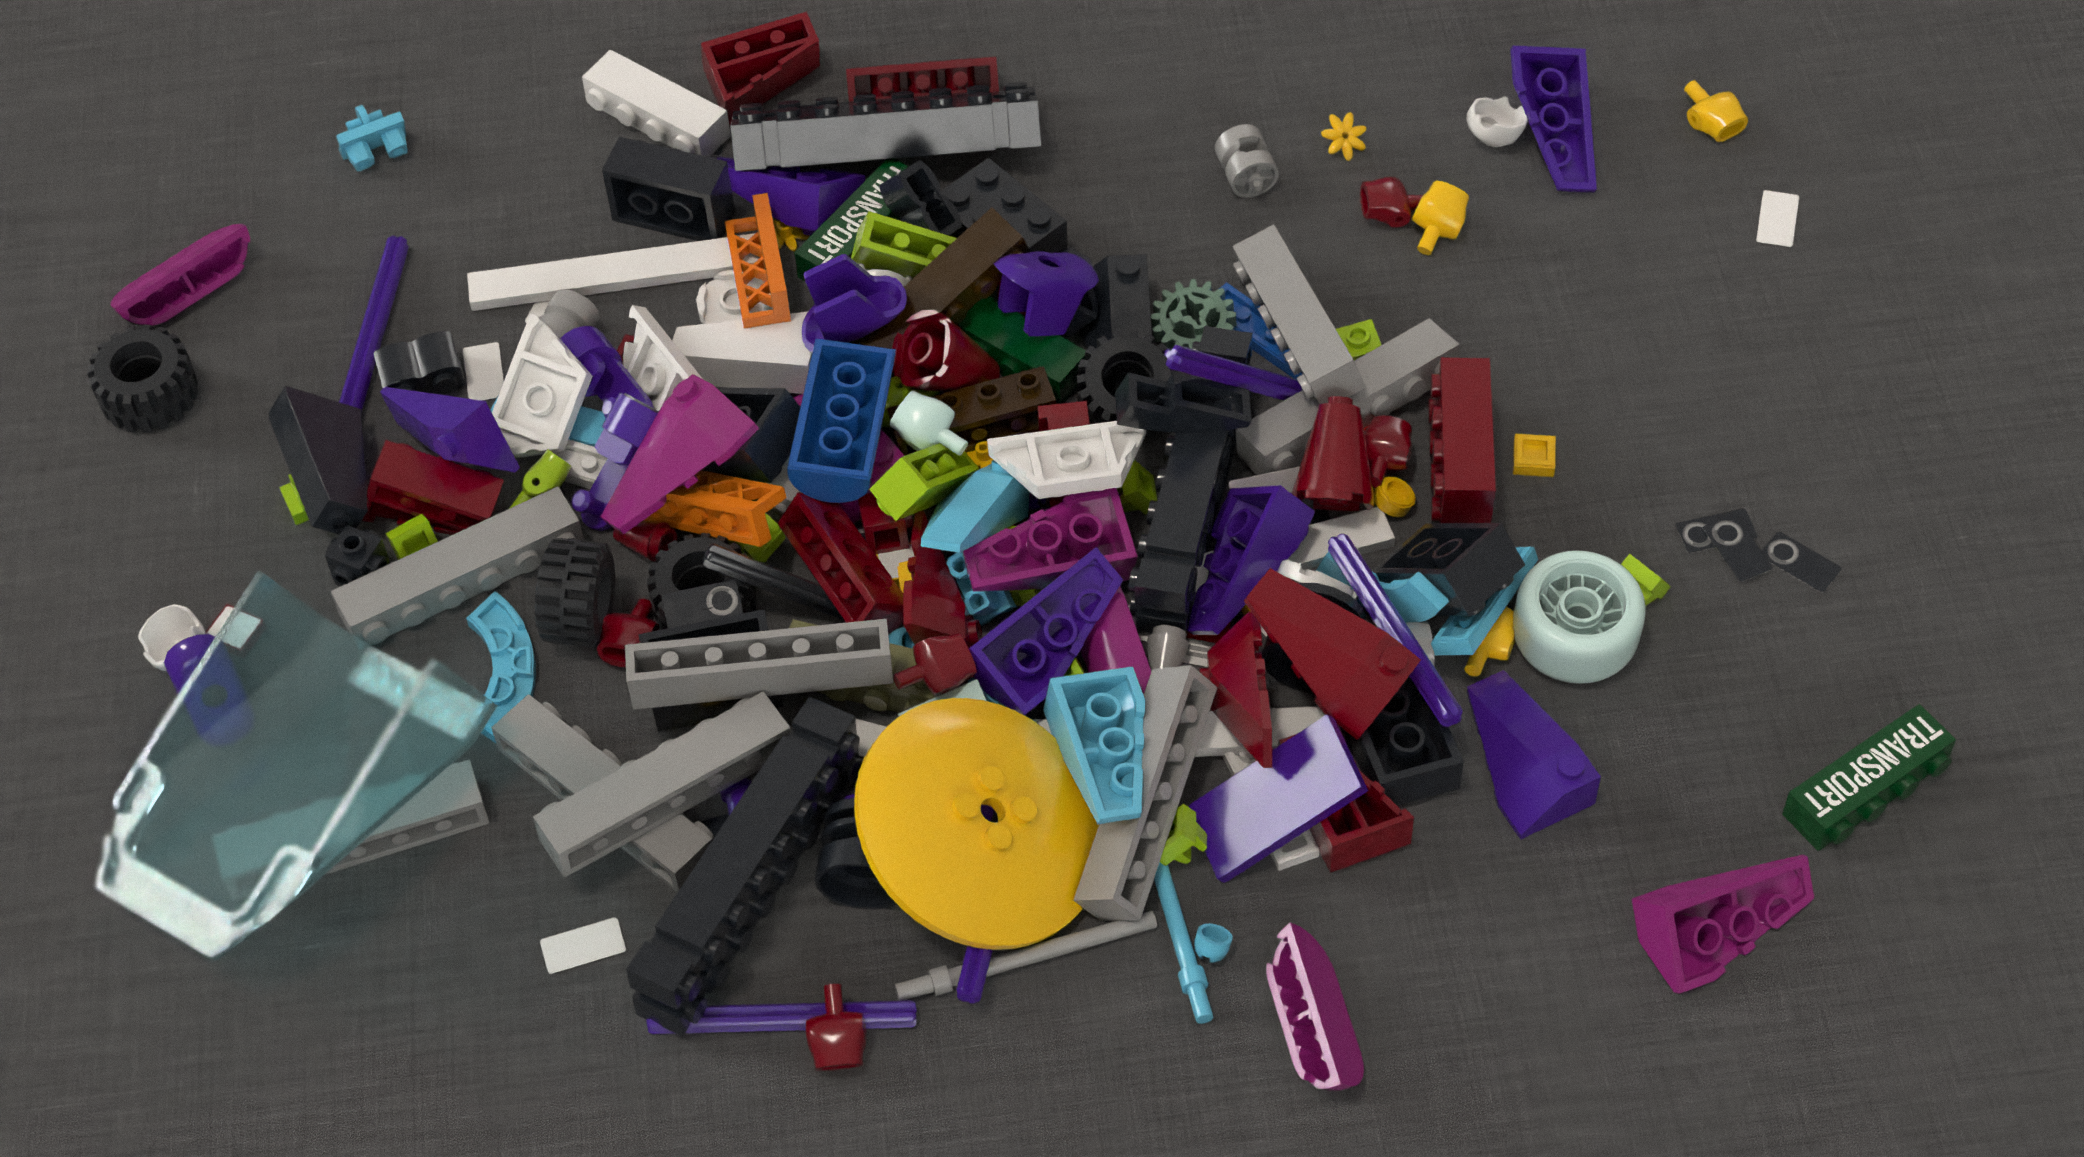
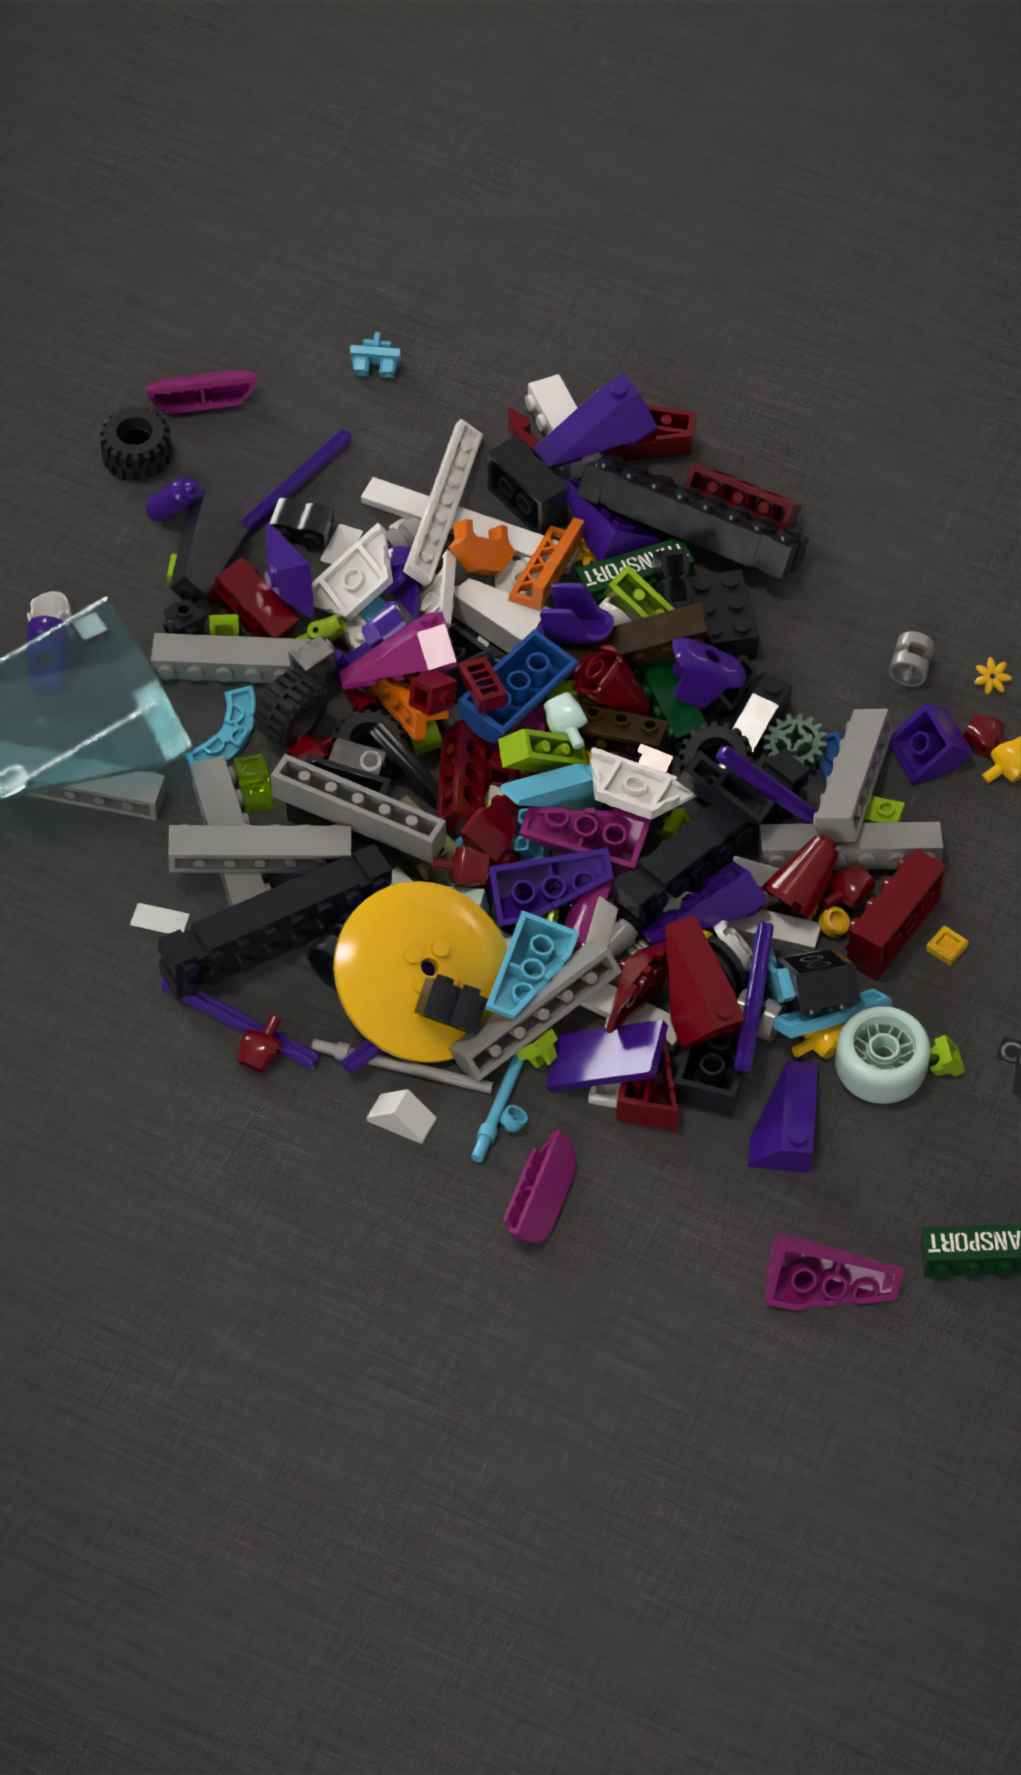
camera: 30 degrees right, 0 degrees up
(242, 418) = (173, 499): none -> dark purple piece
(561, 514) = (313, 658): none -> flat silver brick
(582, 259) = (443, 503): none -> white tile
(582, 706) = (254, 783): none -> clear neon green slope
(603, 132) = (521, 428): none -> dark red slope
(669, 293) = (481, 554): none -> orange piece
(712, 70) = (604, 421): none -> dark purple wedge
(753, 475) = (432, 693): none -> dark red brick
(822, 454) = (485, 702): none -> dark red slope
(1052, 841) = (450, 1004): none -> black brick
(1072, 1017) = (403, 1115): none -> white slope
(1144, 642) = (602, 922): none -> white sticker
(1340, 243) = (929, 744): none -> dark purple slope

